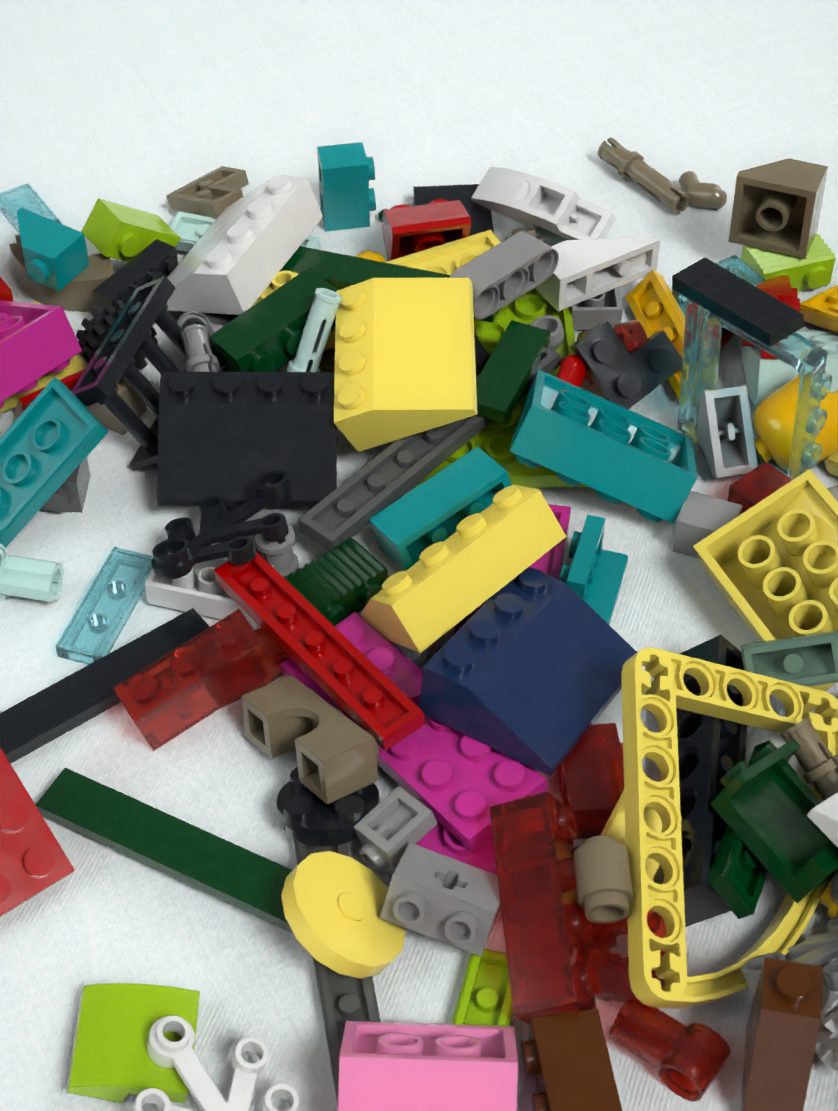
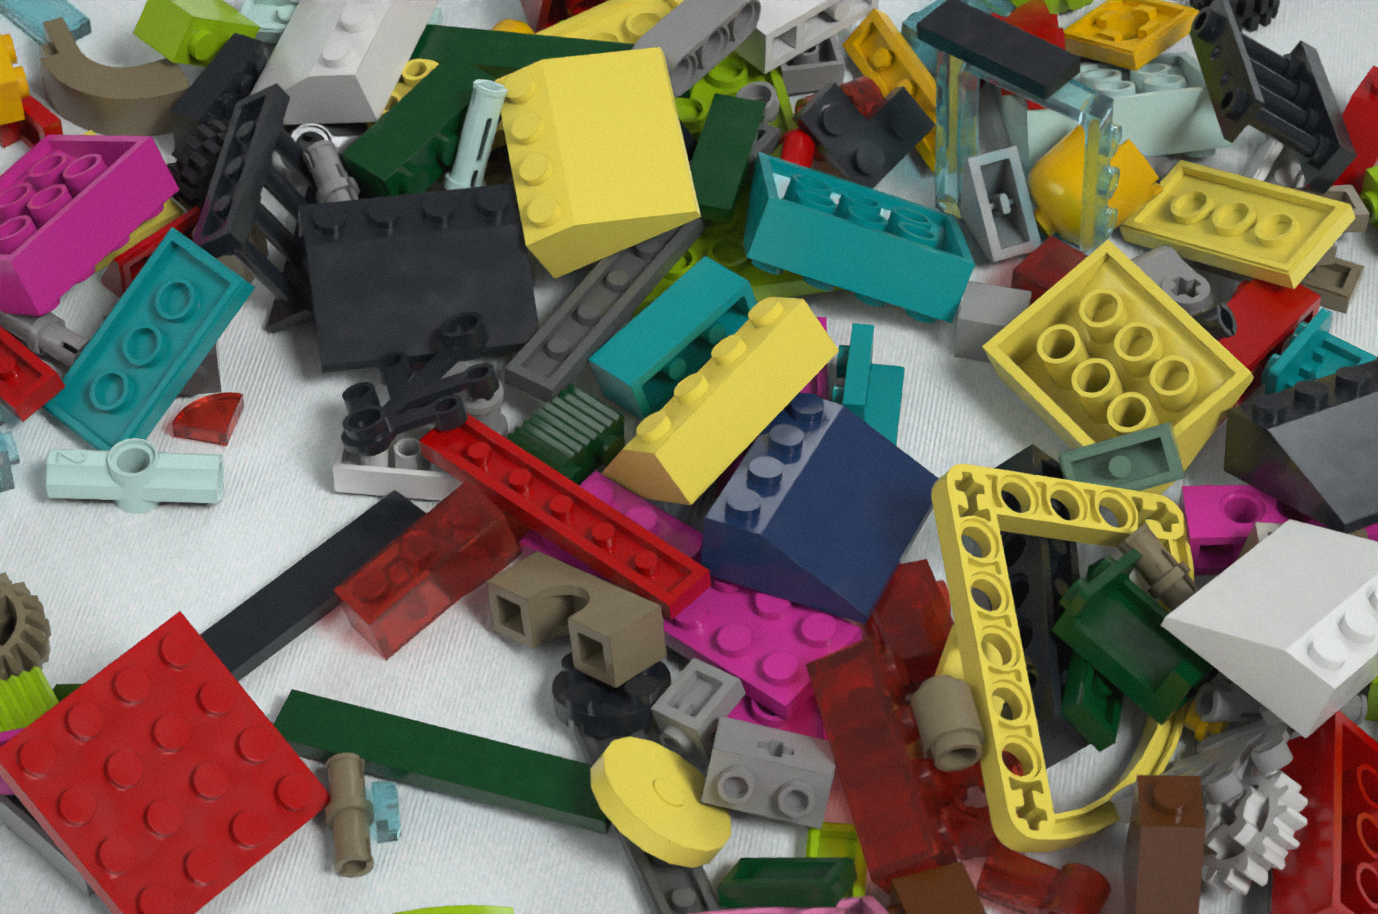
camera: 10 degrees left, 0 degrees up
(51, 250) = (102, 61): teal slope -> none
(65, 532) = (210, 418): none -> clear red tile
(83, 886) = (349, 815): none -> dark tan pin
(105, 607) = (286, 500): clear light blue tile -> none
(114, 885) = (386, 811): none -> clear light blue tile
(440, 1005) = (787, 882): none -> dark green tile

